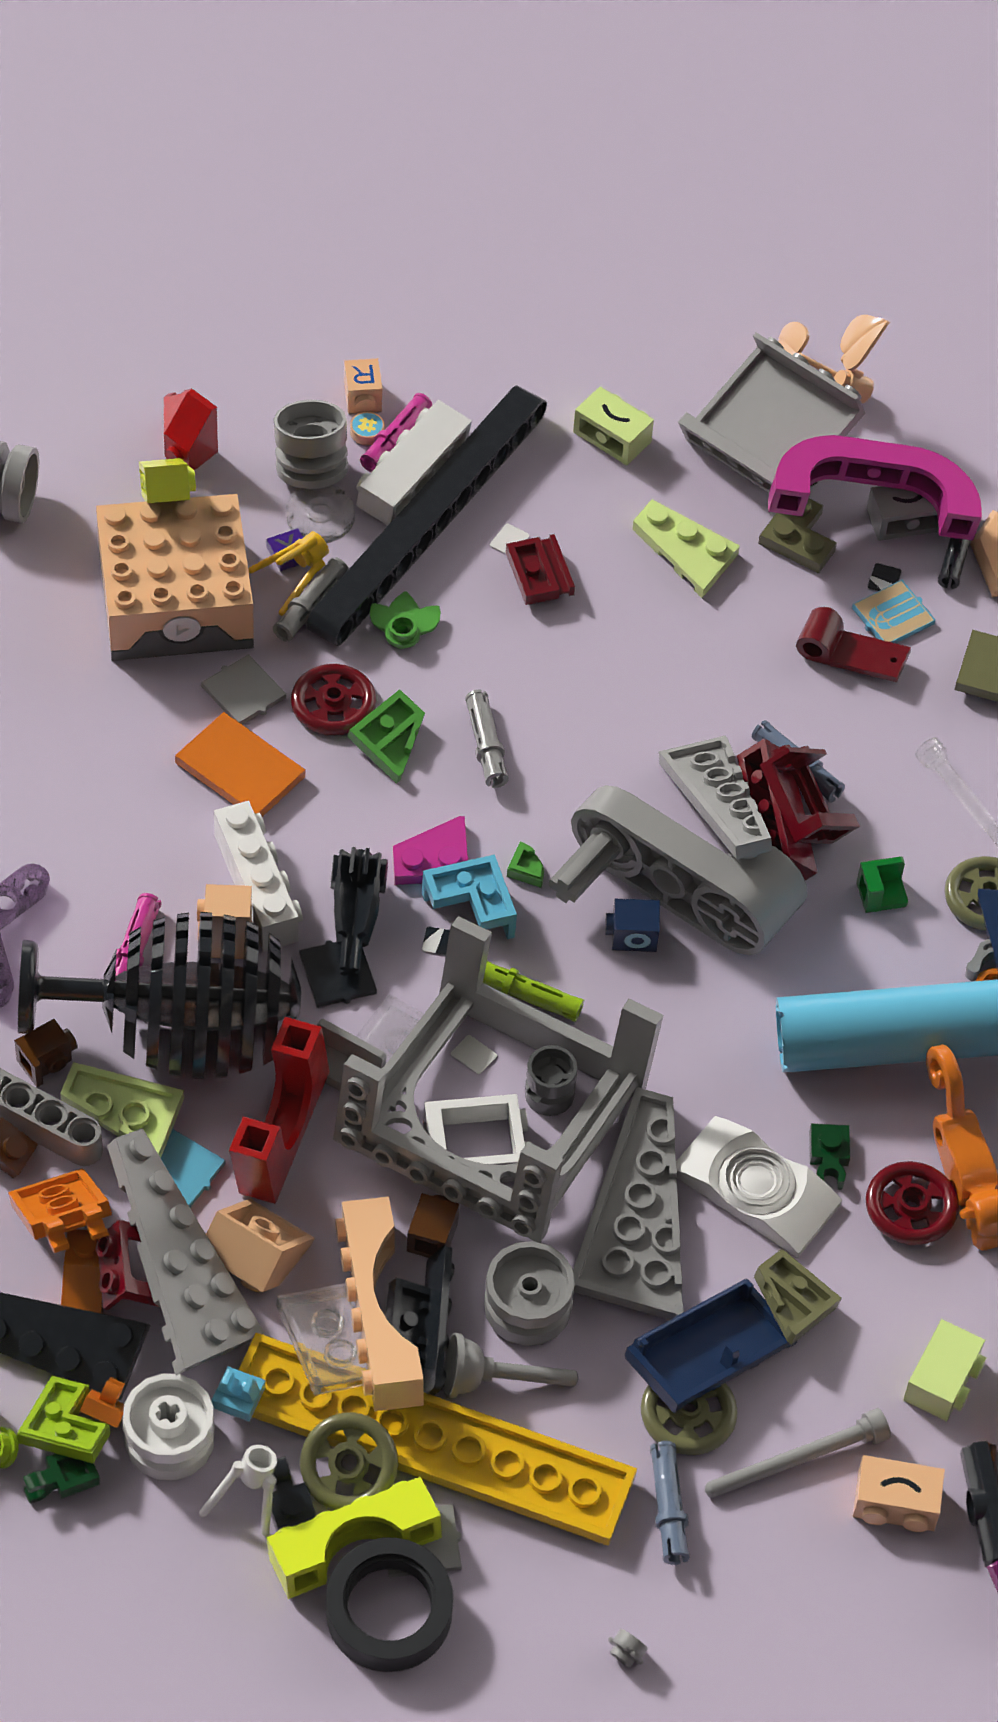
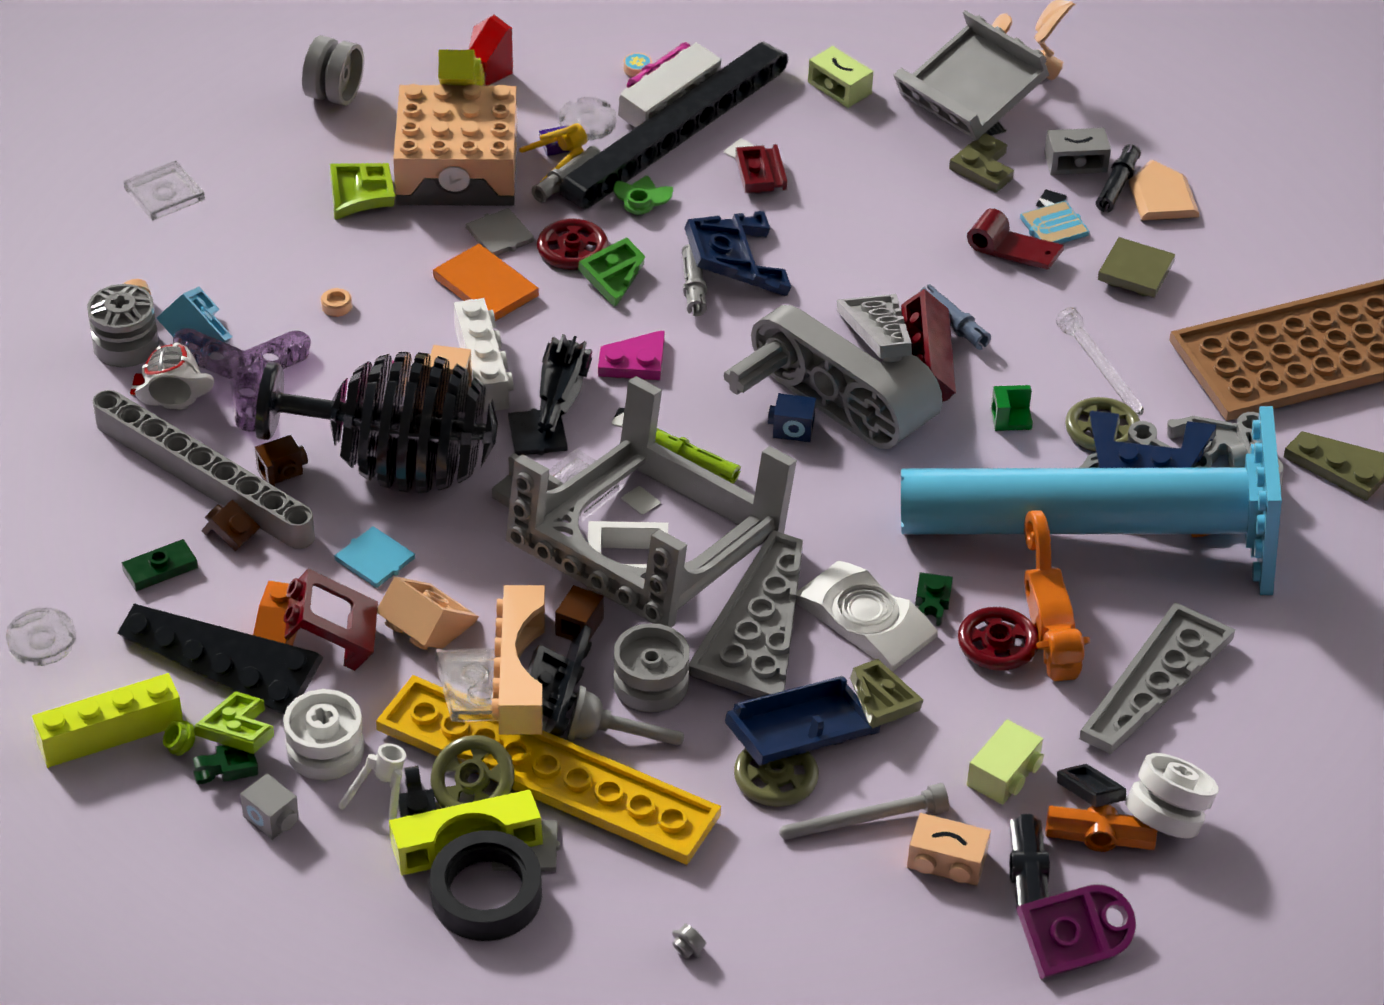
camera: 10 degrees right, 10 degrees down
(62, 1206) = (256, 564): orange tile -> none
(67, 644) = (360, 187): none -> lime plate
(67, 812) = (336, 302): none -> light nougat tile
(105, 1405) = (274, 711): orange tile -> none
(124, 1102) = (339, 506): yellowish green wing -> none
(124, 1529) = (270, 806): none -> light grey brick
(182, 1268) = (356, 615): light grey wing -> none
(238, 1393) = (387, 714): medium azure tile -> none
(267, 1149) = (450, 541): red arch -> none
(311, 444) = (586, 65): light grey wheel -> none
(363, 385) = (639, 34): light nougat brick -> none
(476, 882) = (664, 372): medium azure panel -> none
(518, 699) = (724, 250): none -> dark blue wing
(526, 866) = (710, 371): bright green tile -> none
(551, 1080) = (700, 518): dark grey wheel -> none
(671, 1517) = (745, 846): sand blue pin -> none
(688, 545) = (887, 163): yellowish green wing -> none
(821, 825) = (961, 354): dark red window -> none
(879, 465) = (1051, 109): dark pink arch -> none

